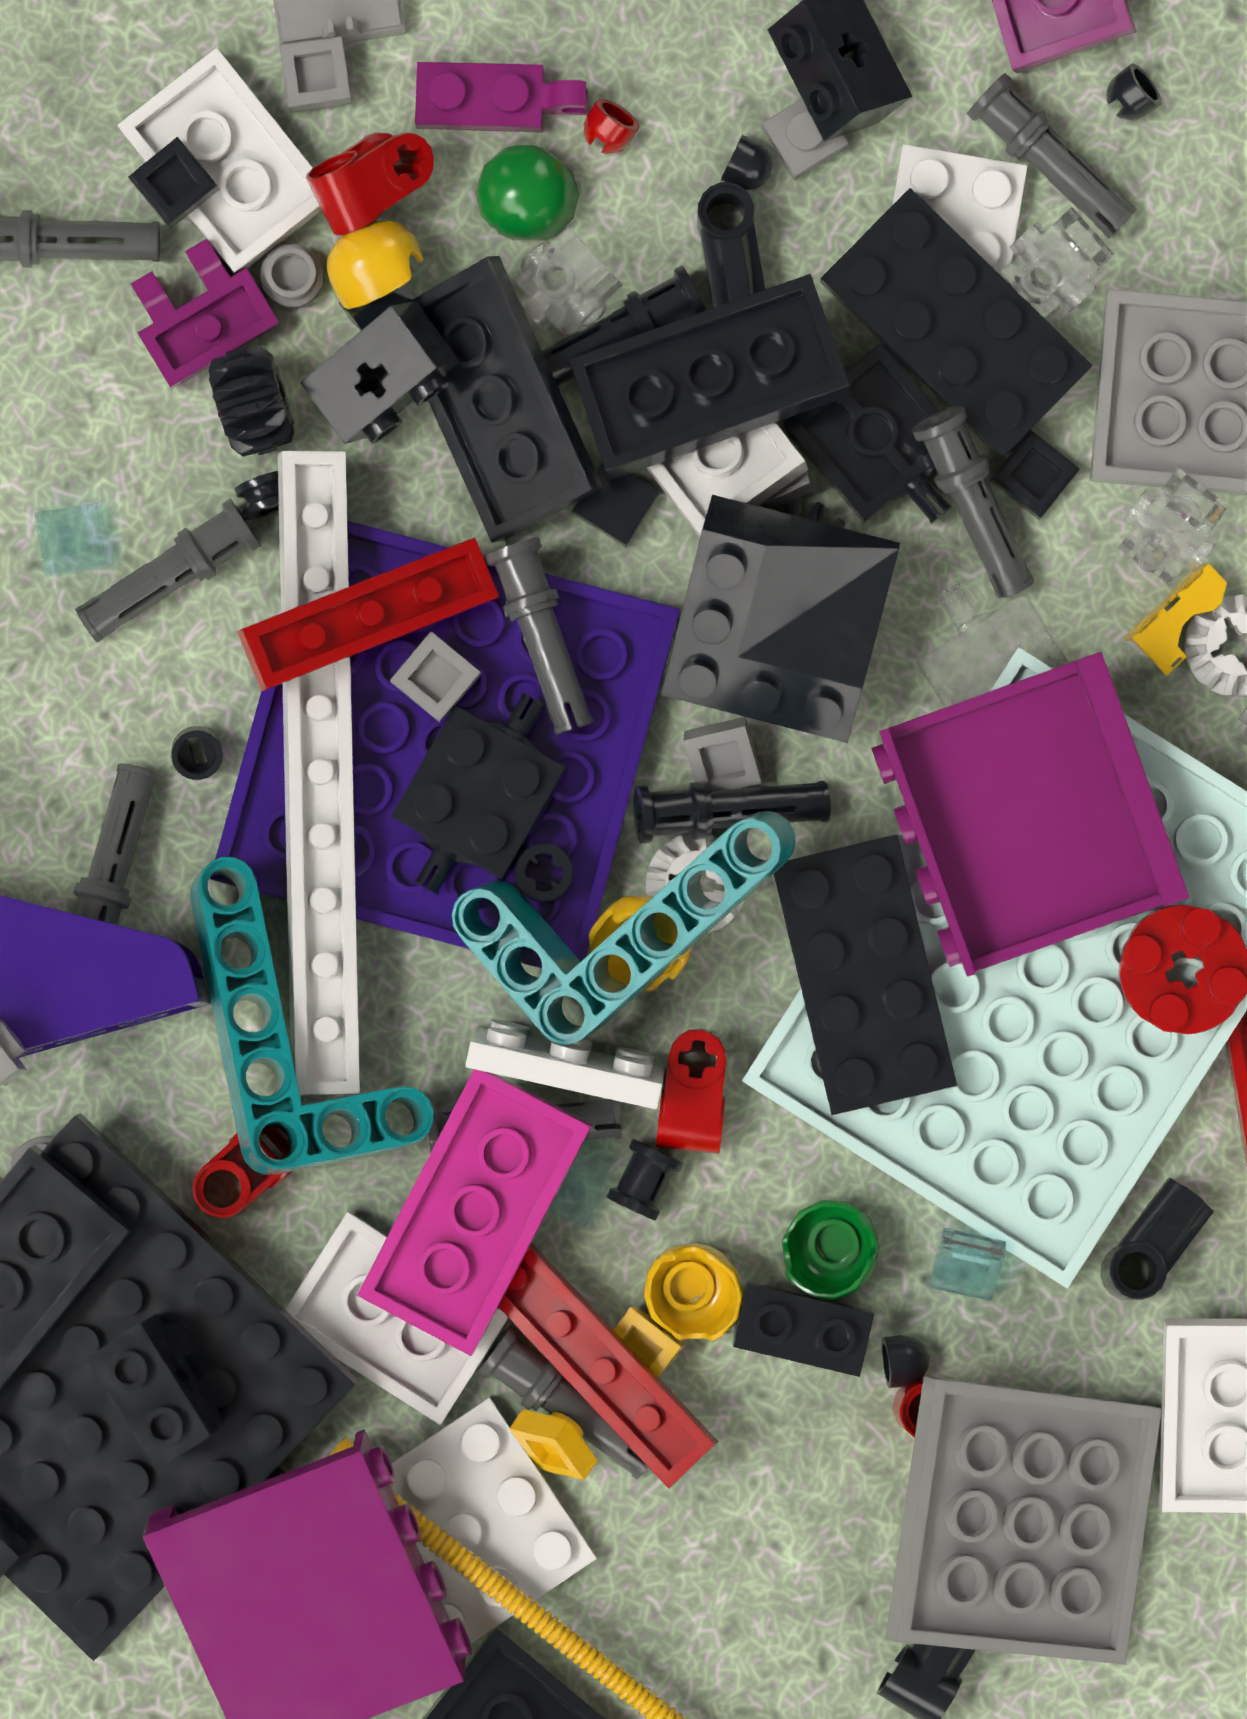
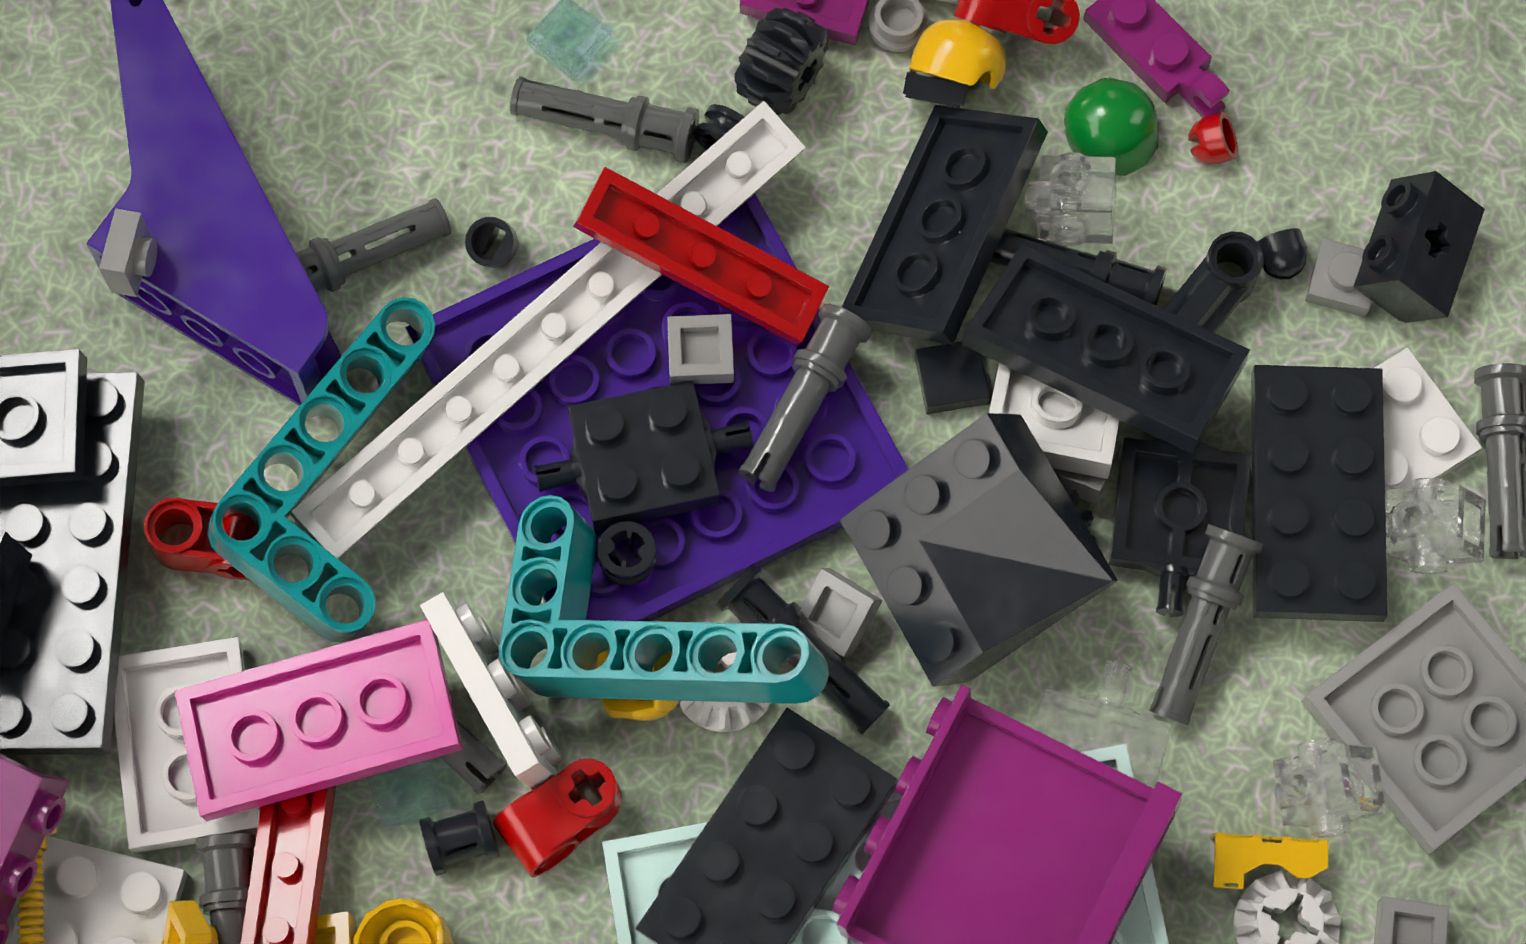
camera: 45 degrees right, 15 degrees down
(348, 382) = (886, 127): brick -> none
(1034, 474) = (1266, 657): black tile -> none

